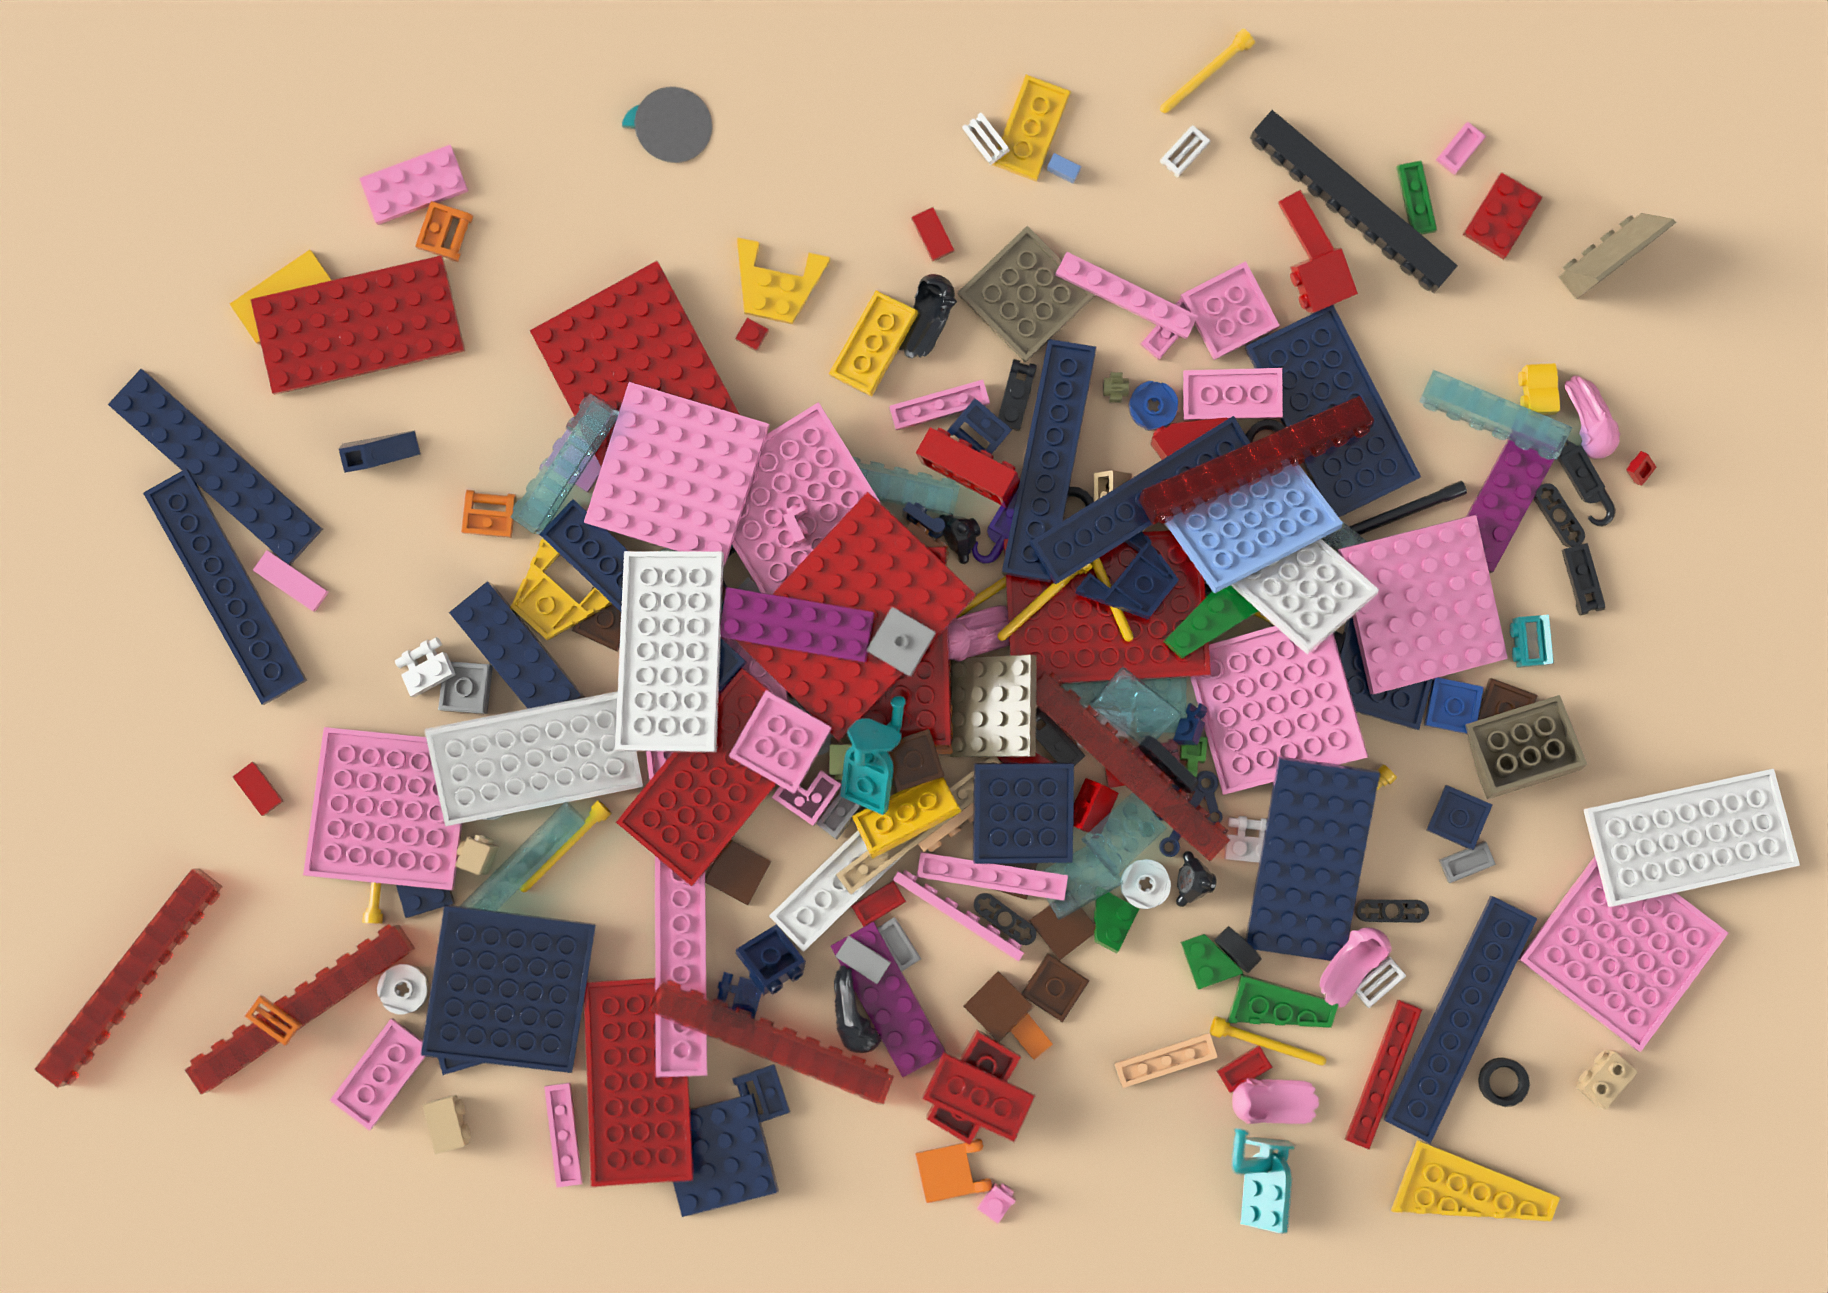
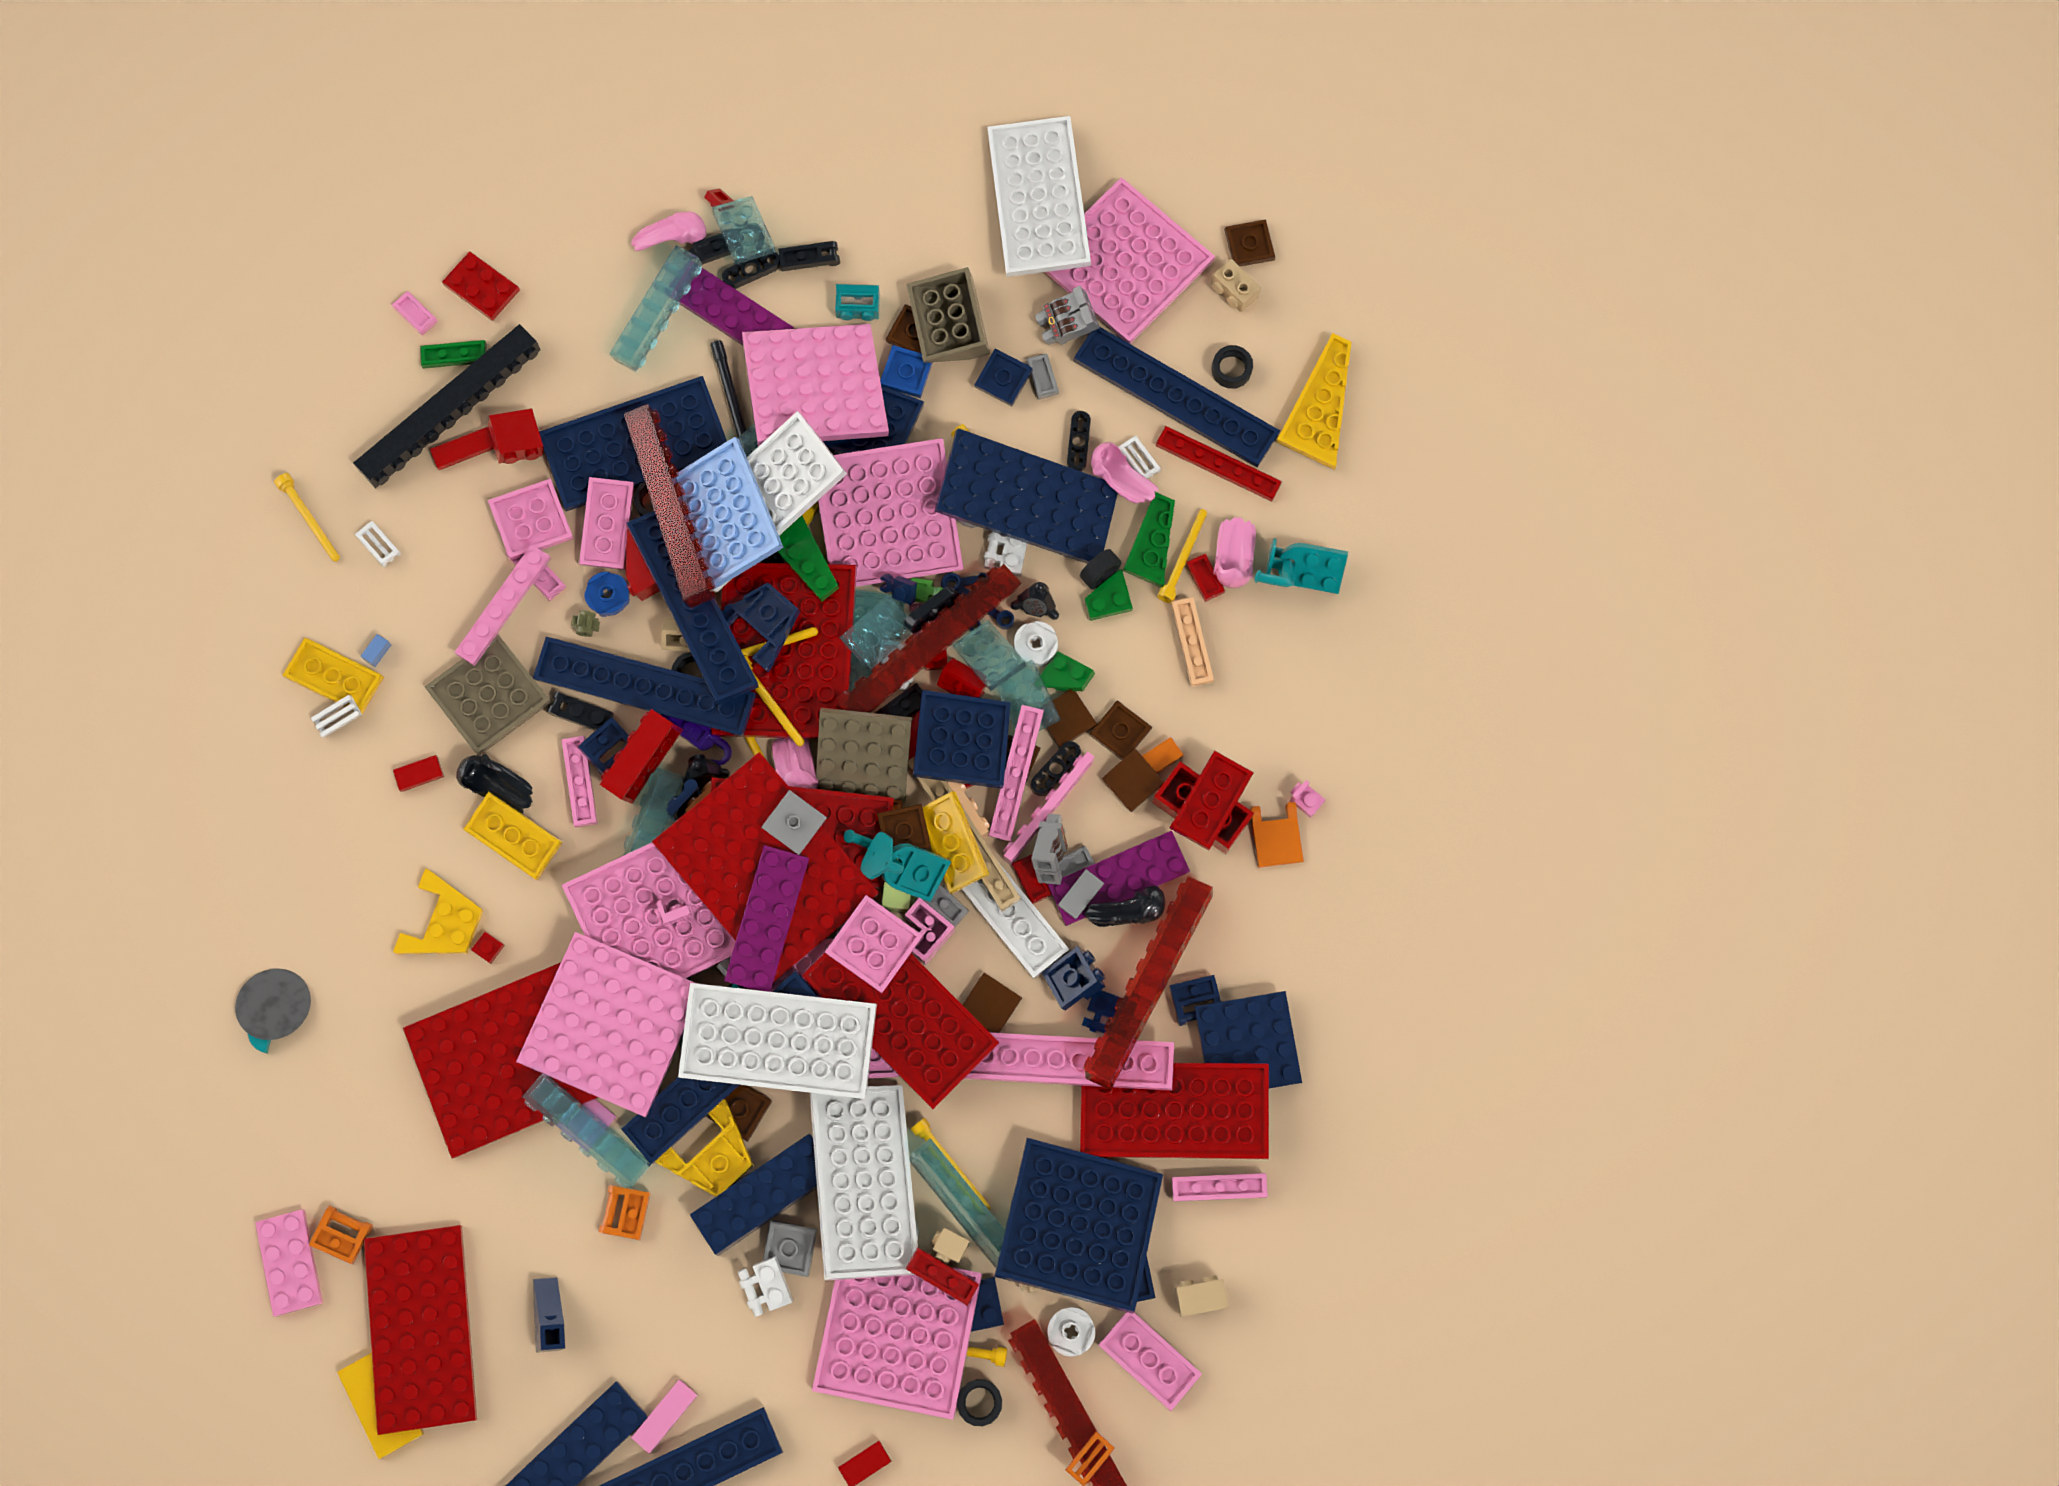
camera: 85 degrees left, 10 degrees down
(307, 908) = (978, 1421): none -> black tyre
(442, 849) = (942, 1276): none -> red tile
(908, 921) = (1049, 850): none -> light grey hips
(1540, 388) = (637, 270): yellow brick -> none
(1541, 885) = (1068, 317): none -> light grey hips
(1604, 501) = (743, 230): none -> clear light blue plate
(1613, 252) = (527, 197): slope -> none
(1664, 1091) = (1250, 243): none -> reddish brown tile

